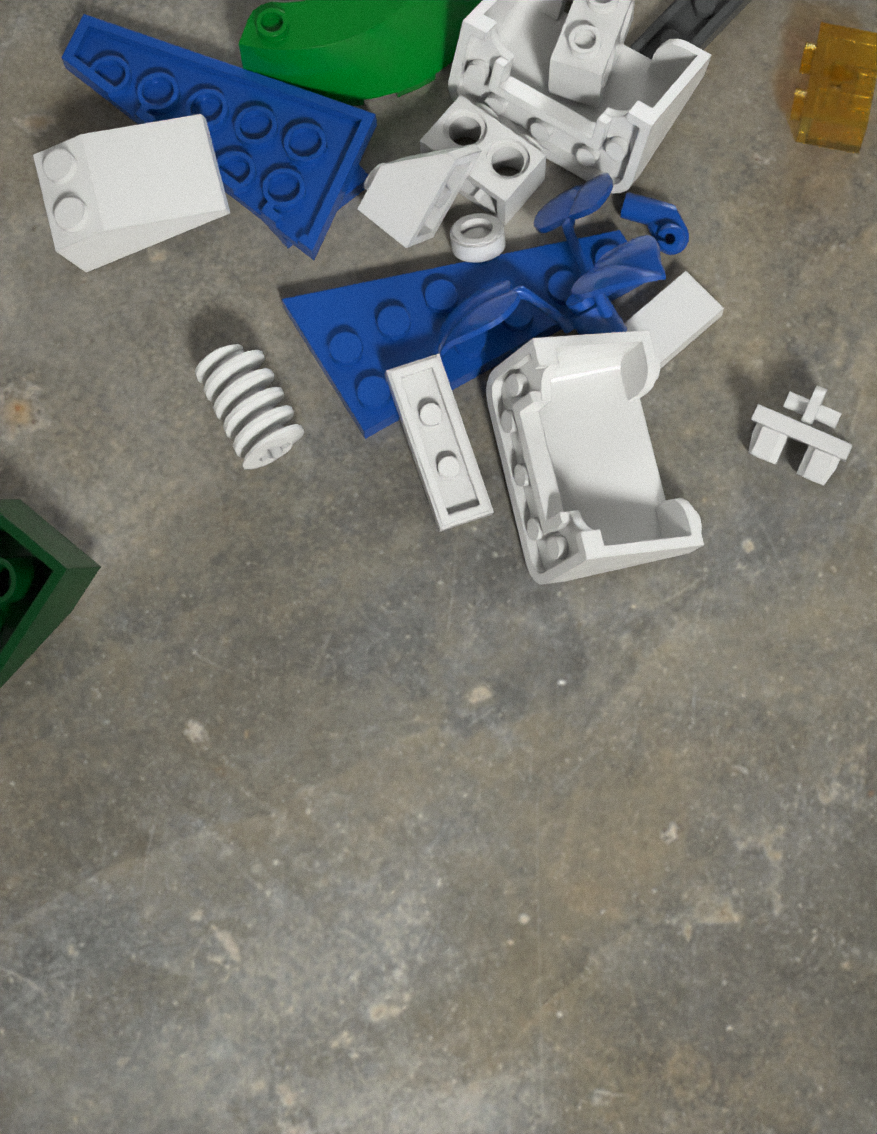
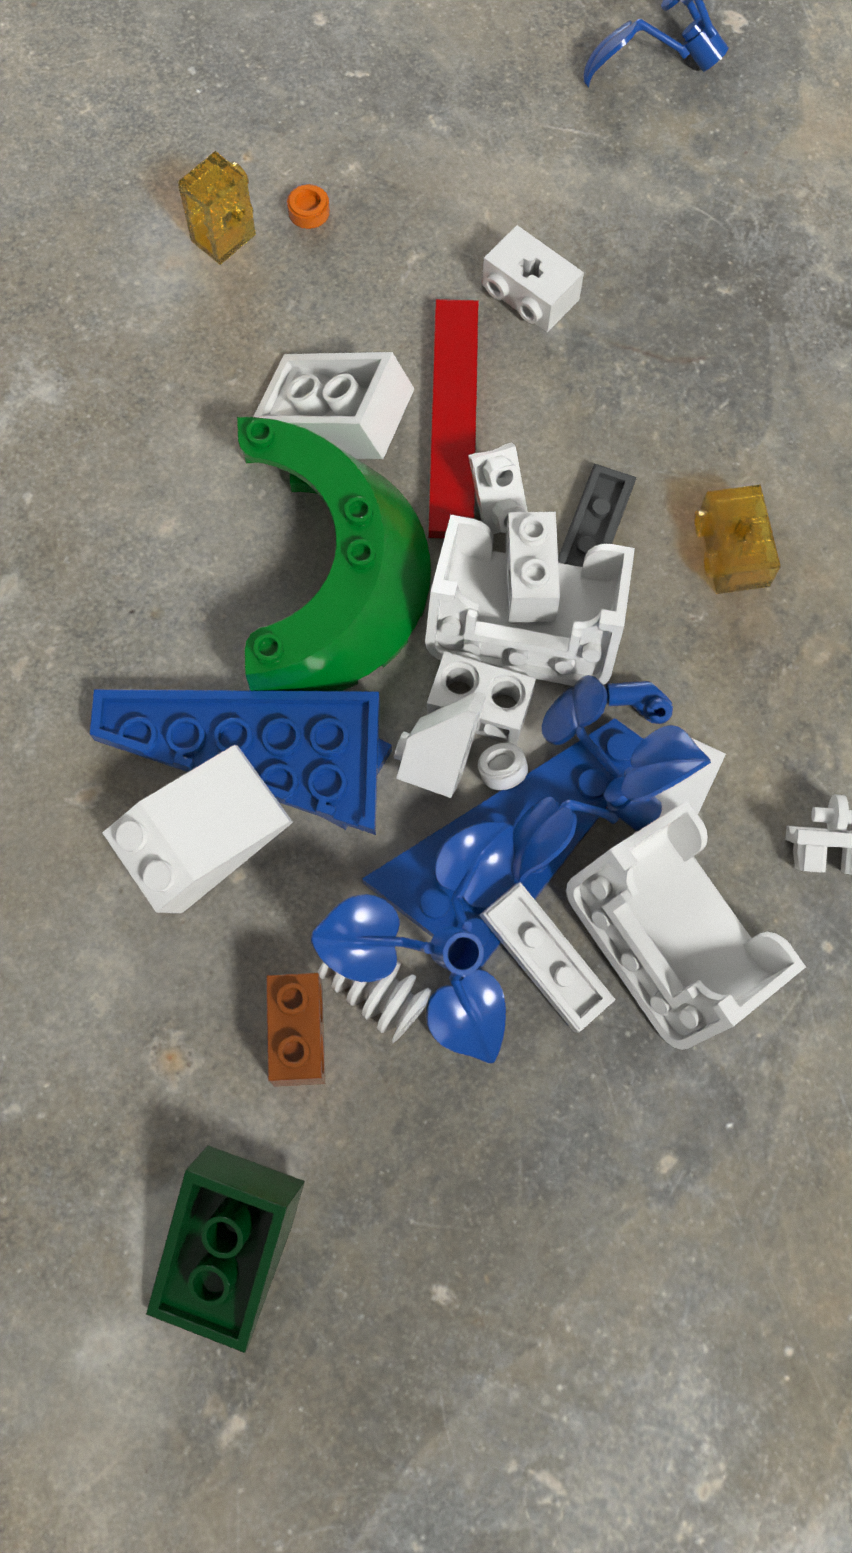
camera: 25 degrees left, 0 degrees up
(151, 420) = (295, 1030): none -> dark orange brick
(247, 343) = (362, 931): none -> blue plant

